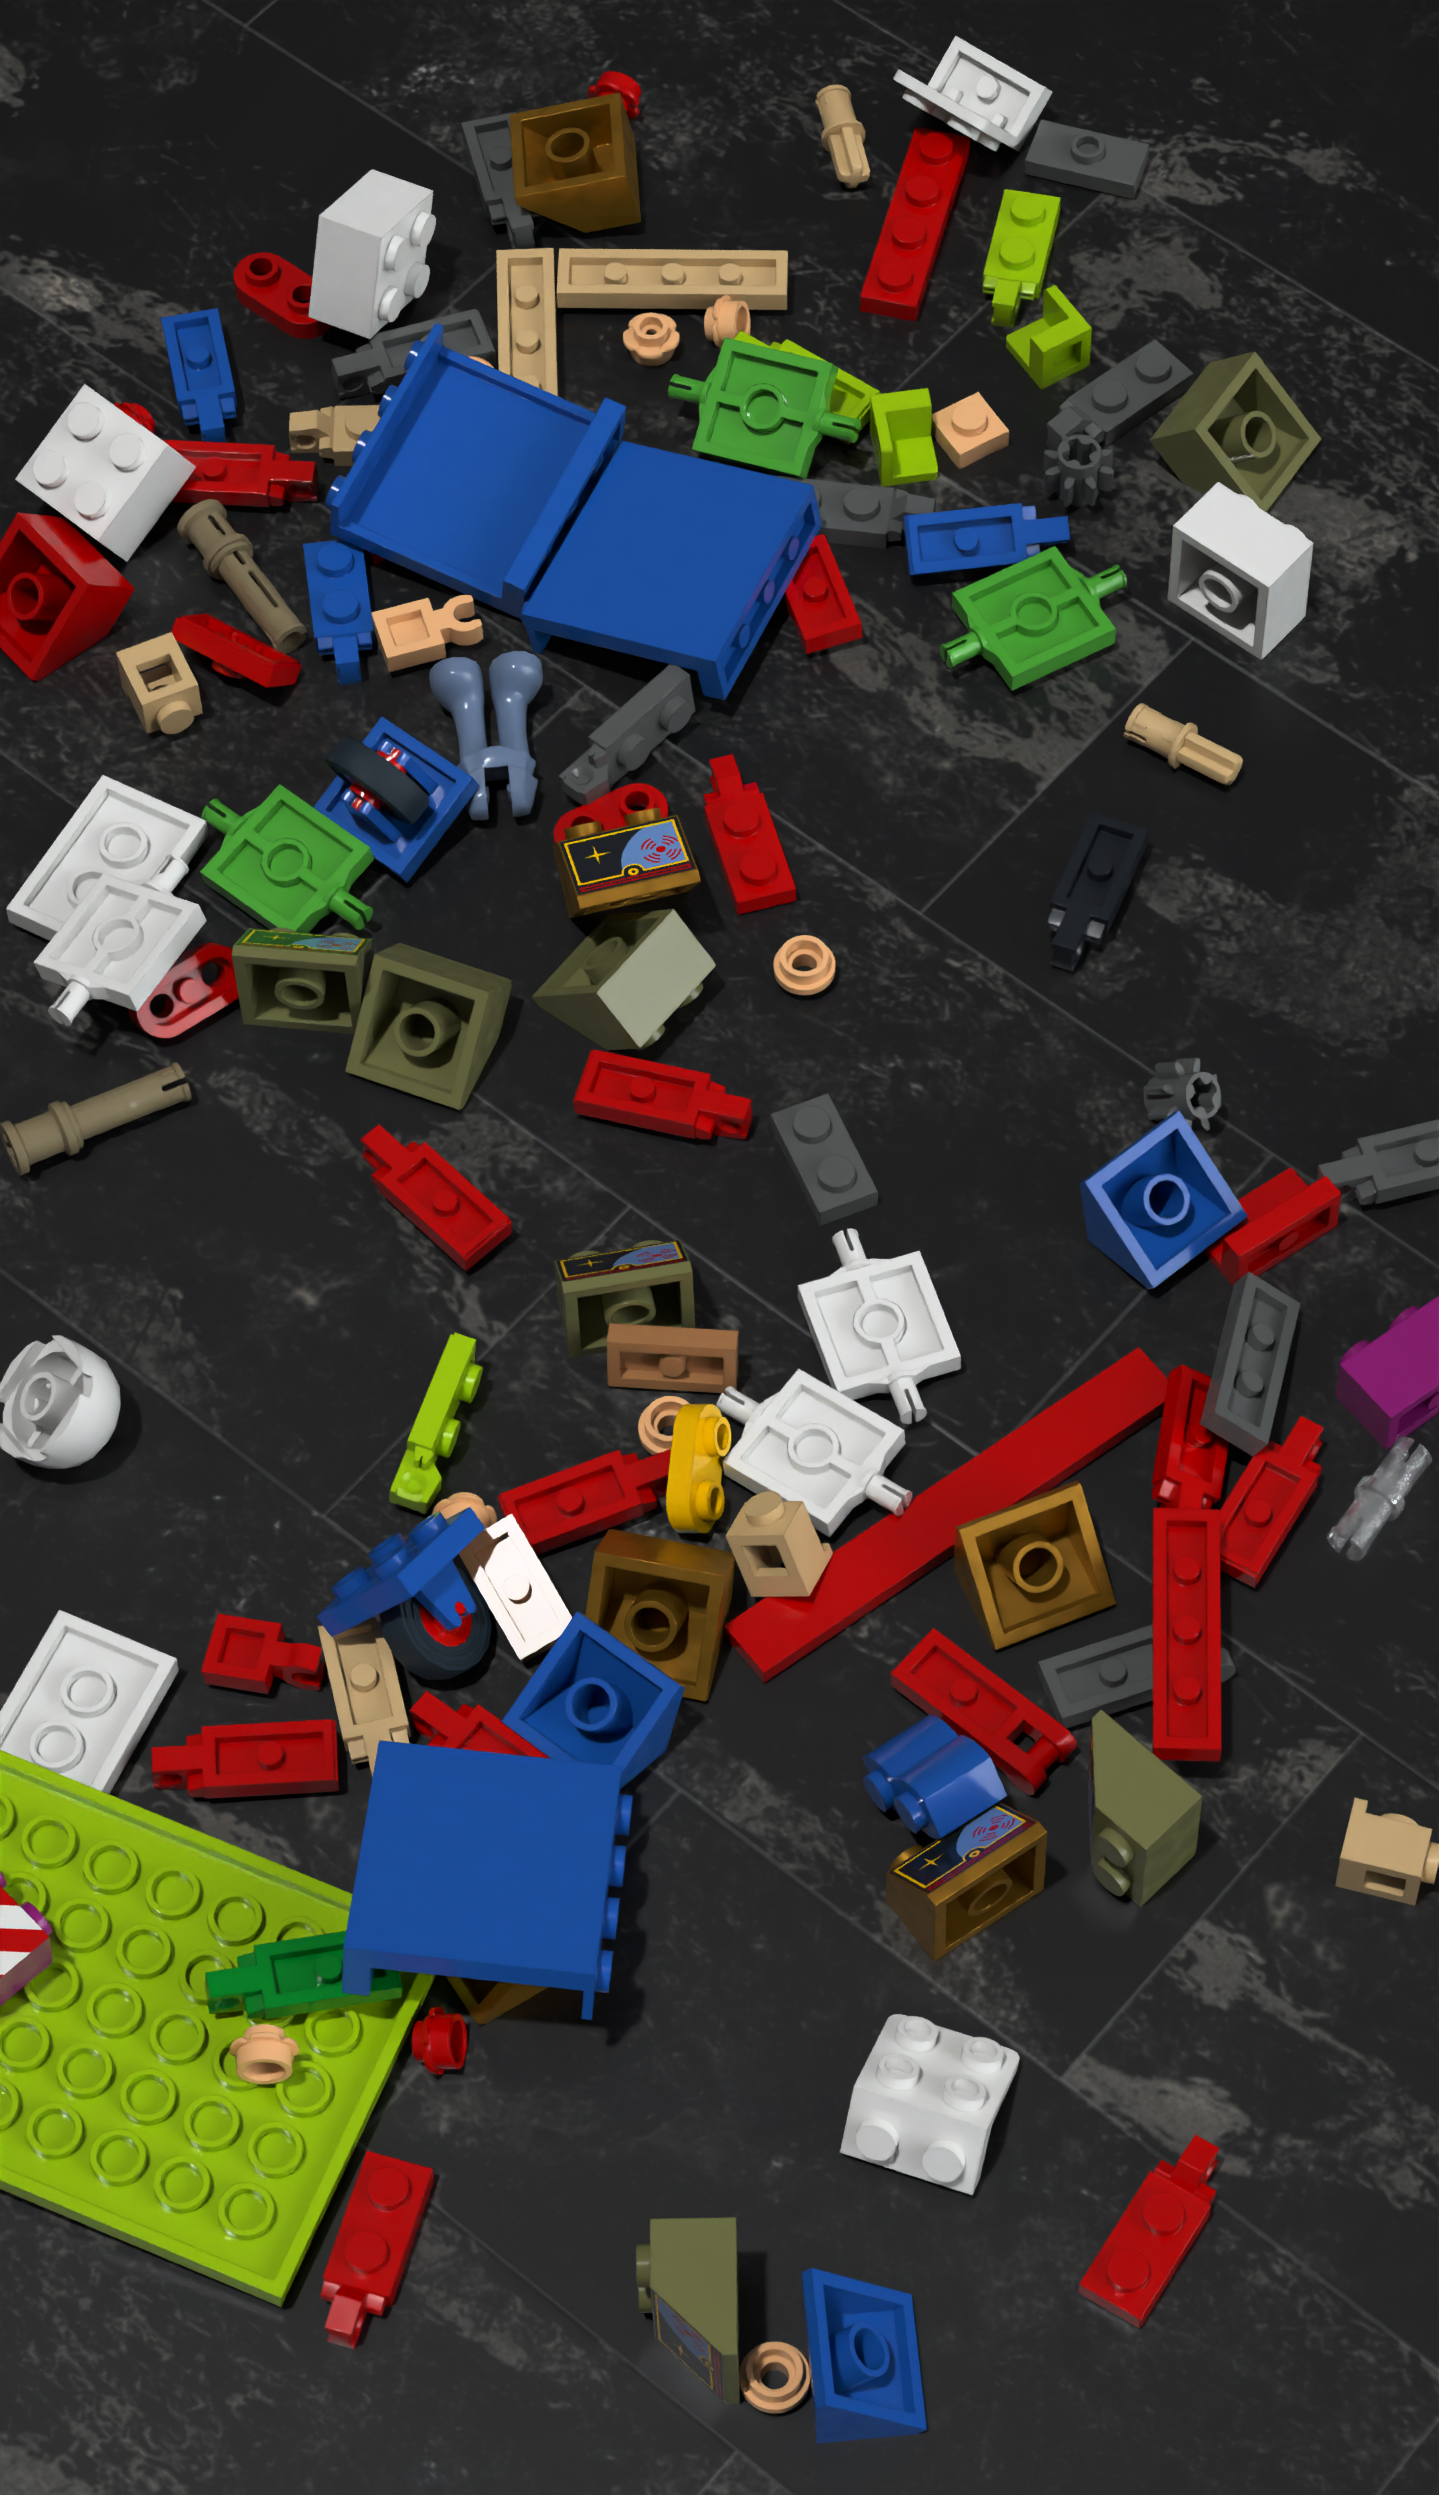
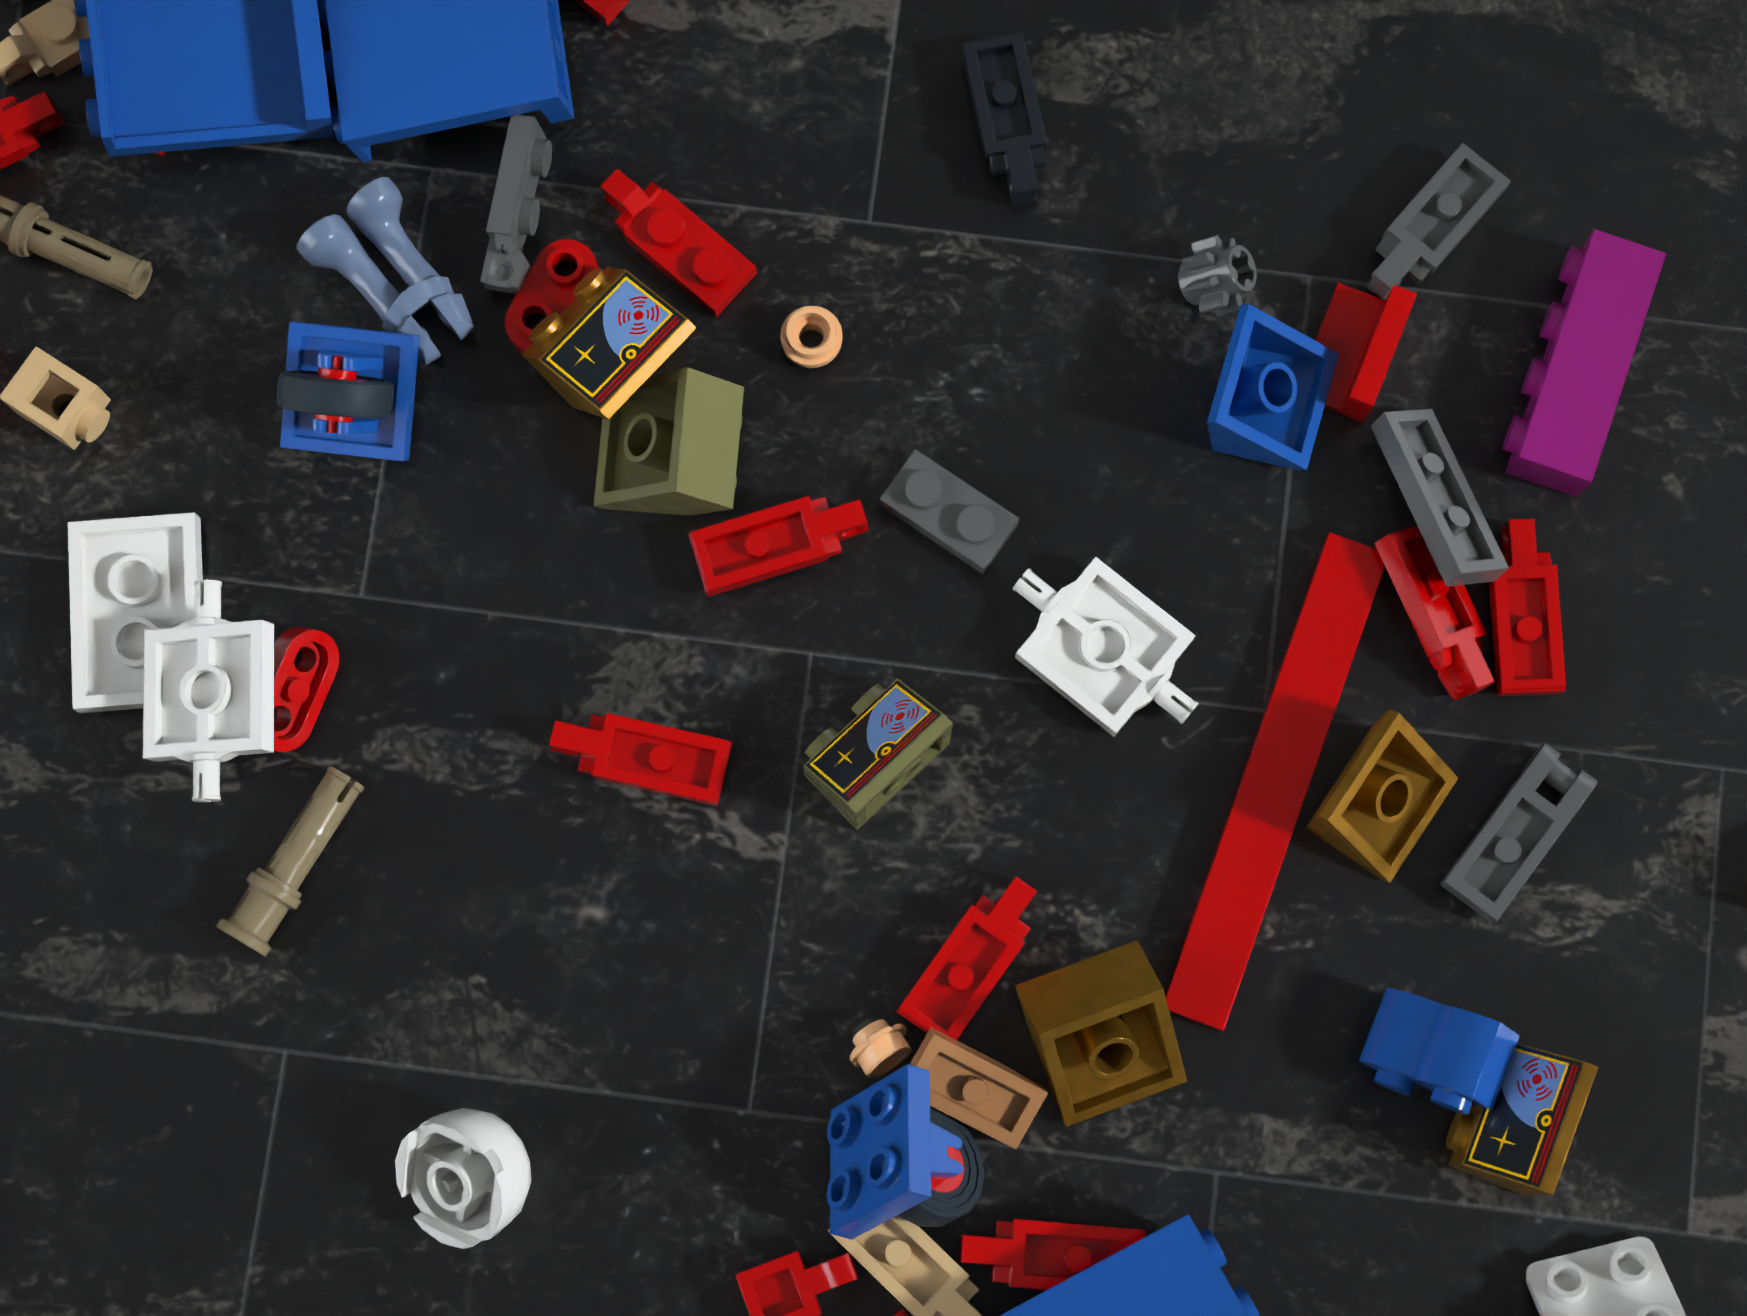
camera: 35 degrees left, 20 degrees up
(235, 651) = (100, 323): red plate -> none
(287, 863) = (296, 511): bright green plate -> none
(301, 979) = (390, 614): olive slope -> none
(339, 604) = (160, 218): blue hinge -> none
(418, 635) = (252, 210): light nougat plate -> none
(427, 1024) = (527, 592): olive slope -> none
(434, 1428) = (799, 980): lime hinge -> none
(597, 1702) = (1117, 1164): blue slope -> none
(654, 1418) = (997, 829): light nougat plate -> none
(672, 1358) = (975, 774): medium nougat plate -> none
(695, 1468) = (1040, 860): yellow plate -> none
(774, 1534) = (1169, 906): tan brick -> none
(814, 1450) = (1130, 799): white plate -> none
(984, 1708) = (1420, 949): red plate -> none
(1138, 1814) = (1622, 982): olive slope -> none
(1186, 1634) = (1558, 788): red plate -> none
(1379, 1498) = (1609, 550): clear pin -> none

